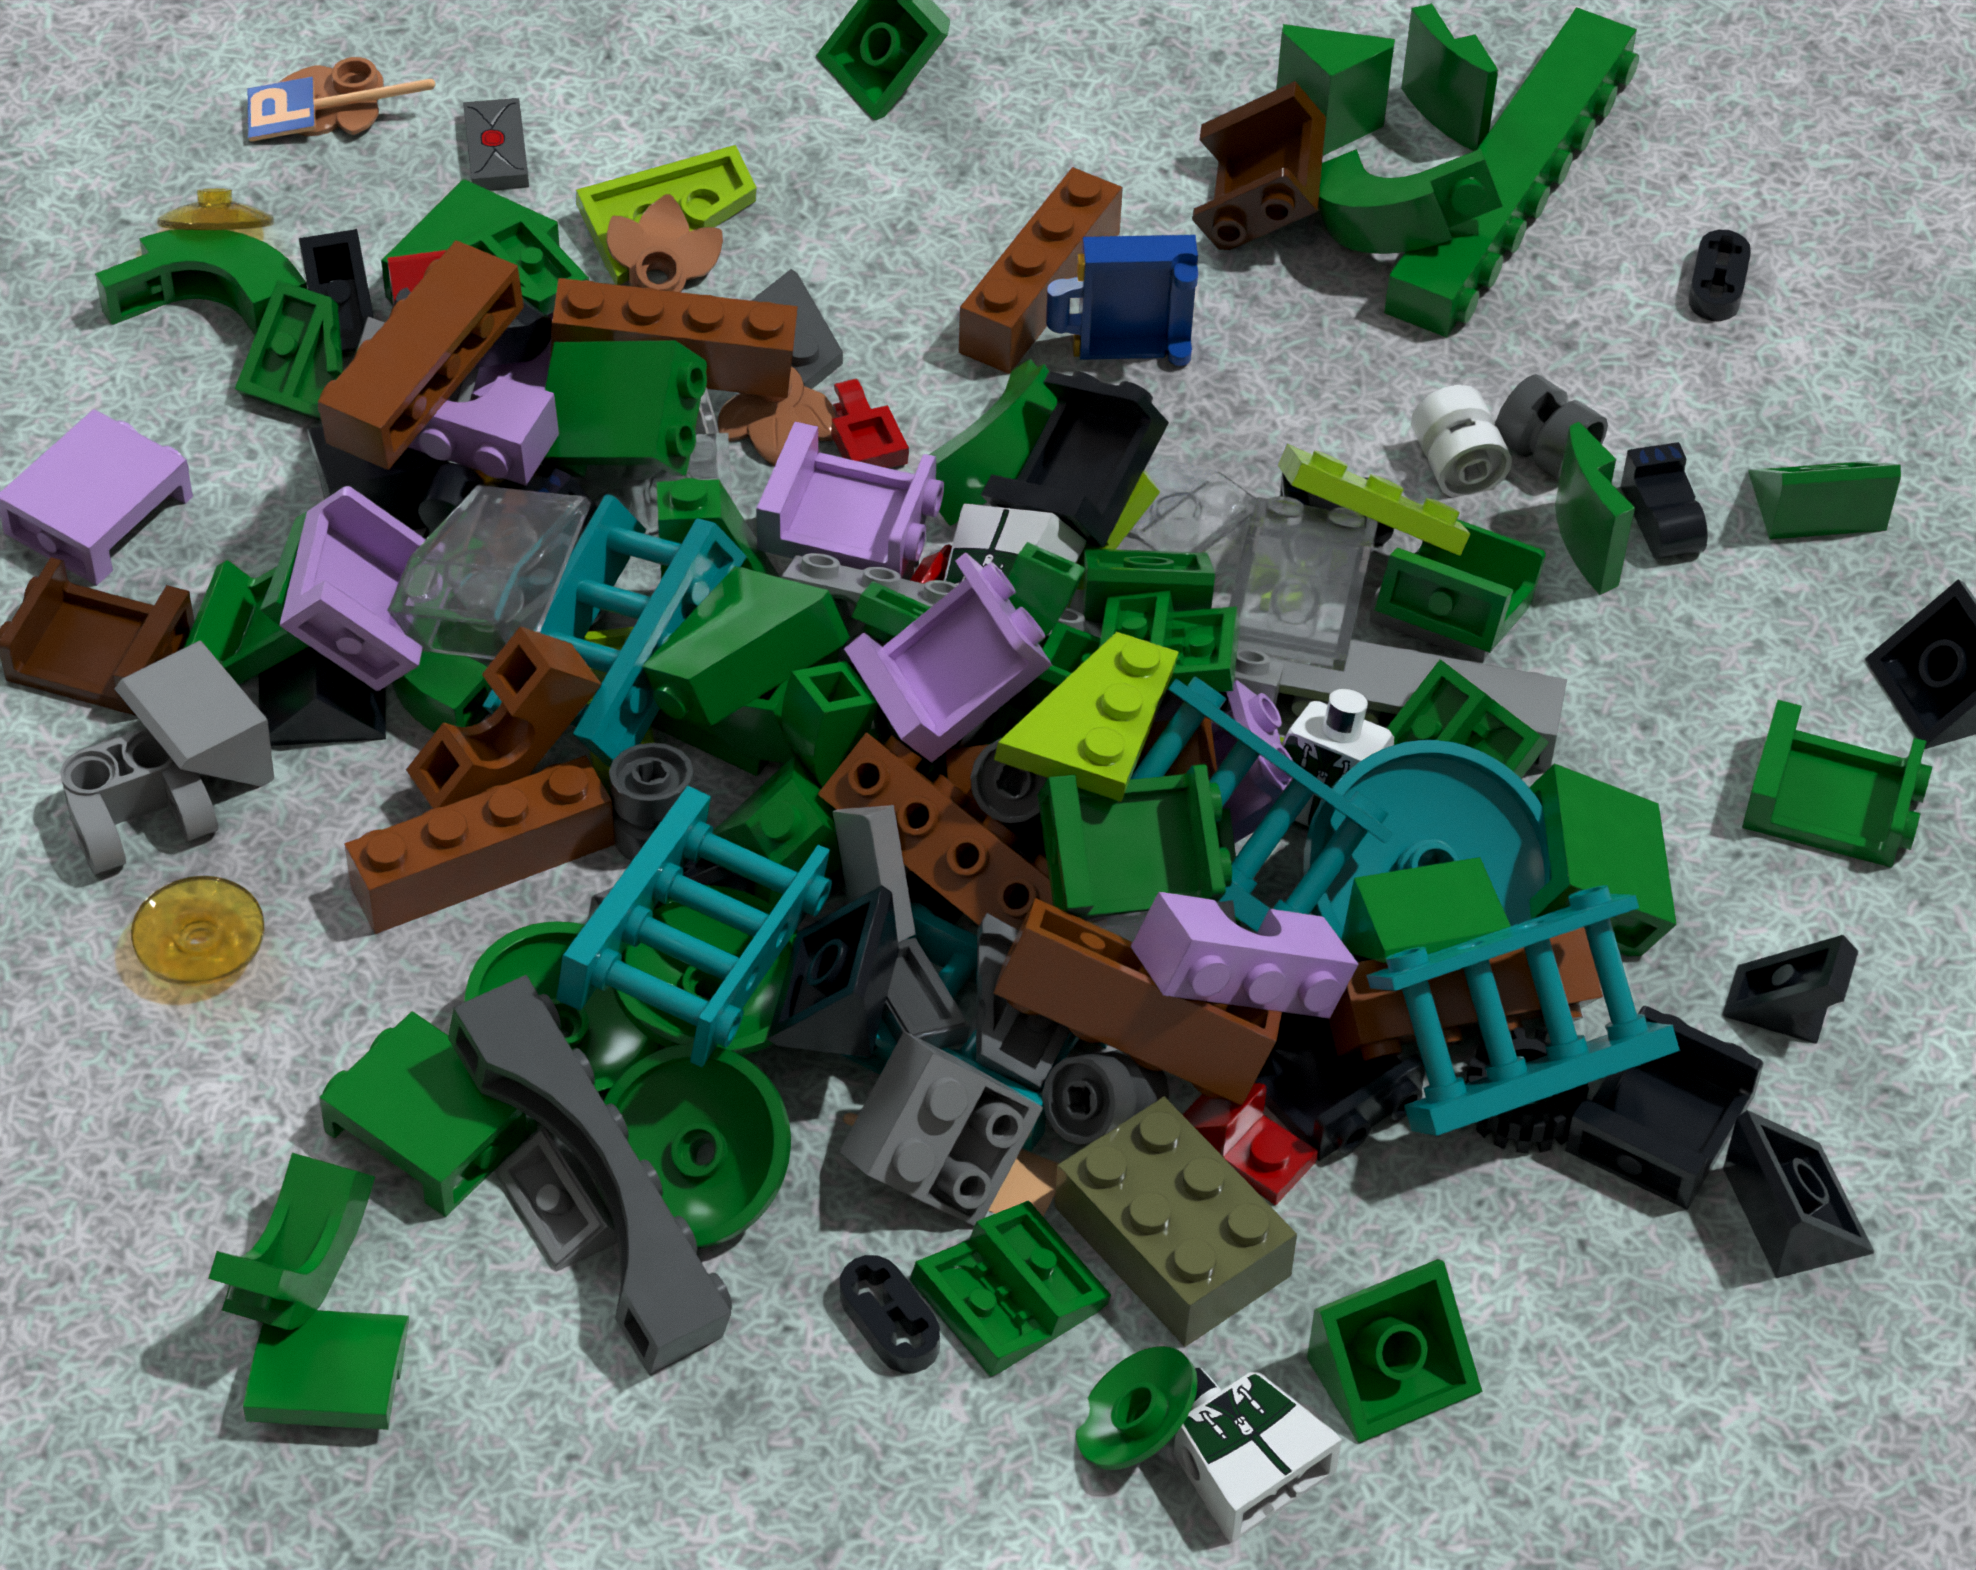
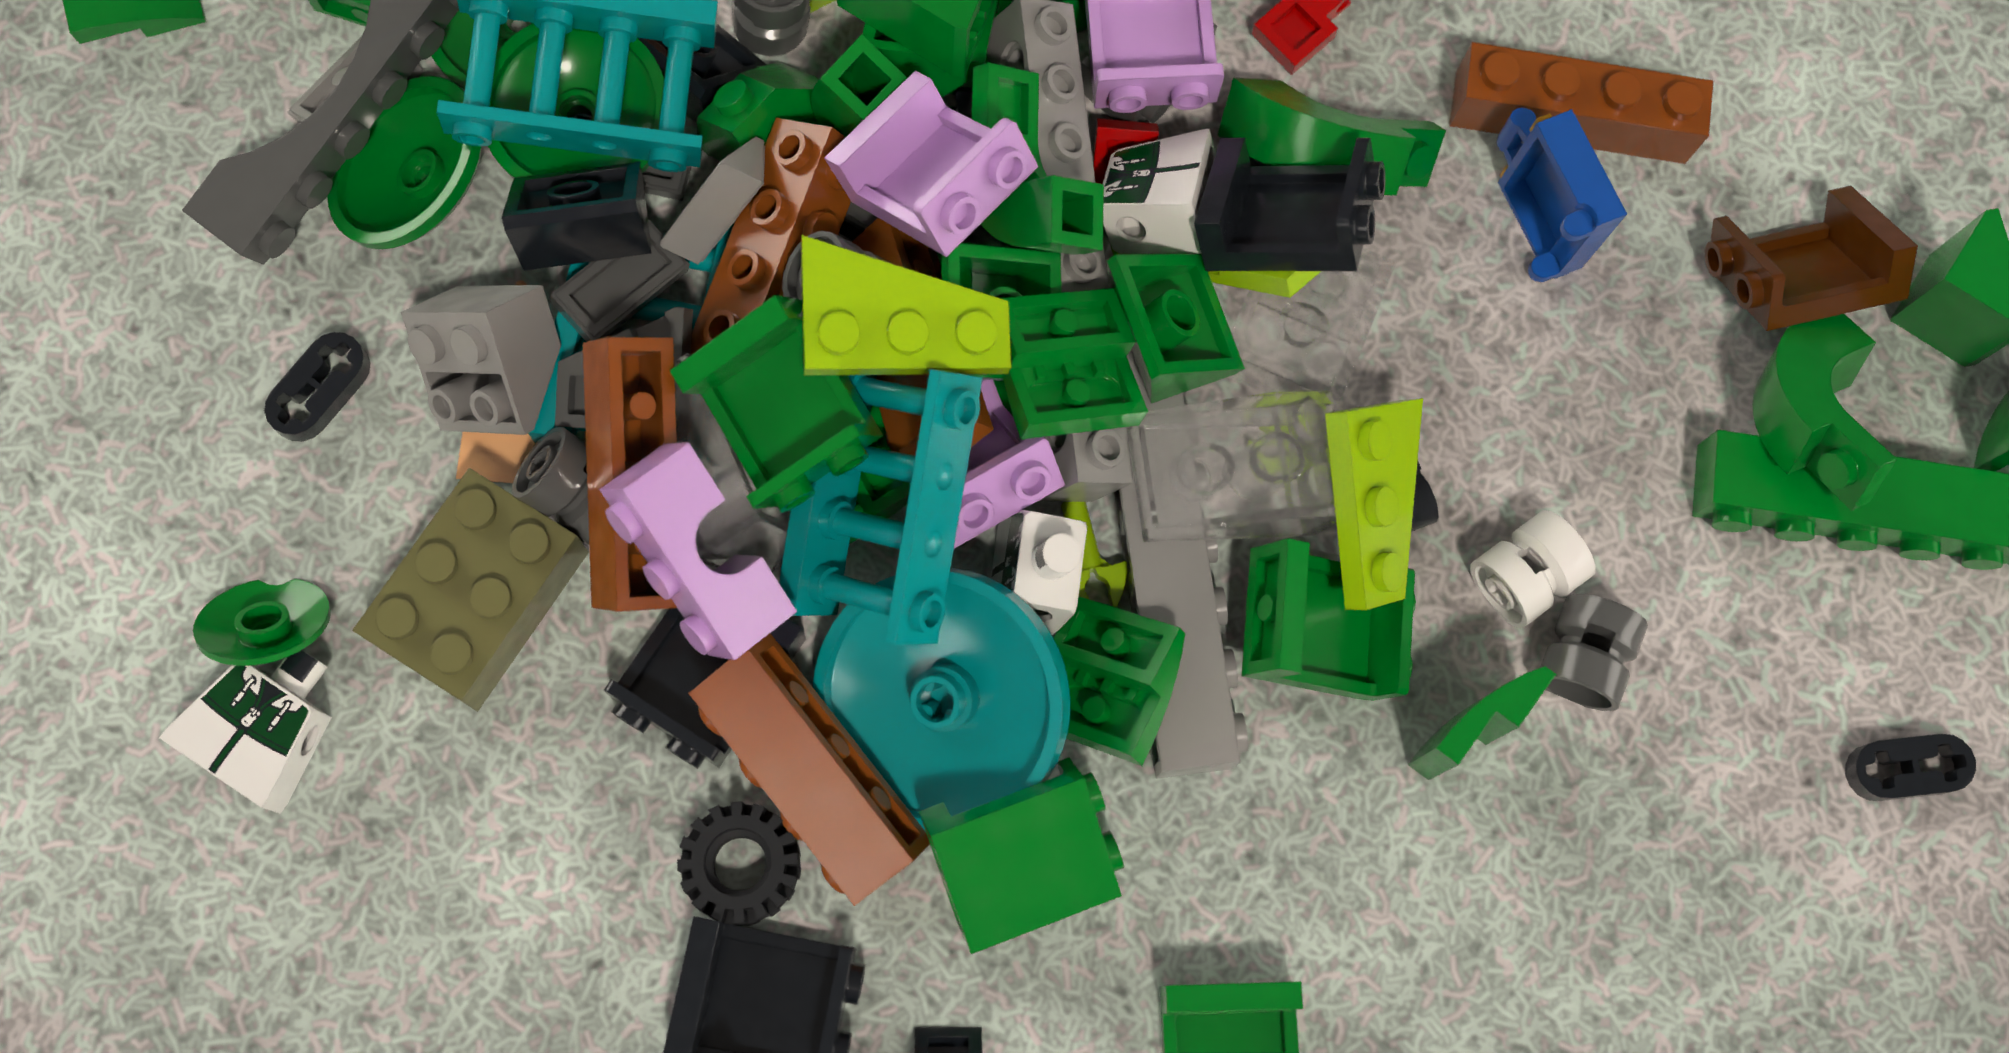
camera: 65 degrees right, 25 degrees up
(1009, 1287) = (379, 475): green slope -> none
(1252, 1143) = (592, 640): red slope -> none
(1393, 1351) = (393, 828): green slope -> none
(1421, 908) = (823, 713): green slope -> none
(1569, 1057) = (707, 868): teal fence -> none
(1664, 500) = (1546, 796): black leg -> none
(1826, 498) = (1638, 957): green slope -> none

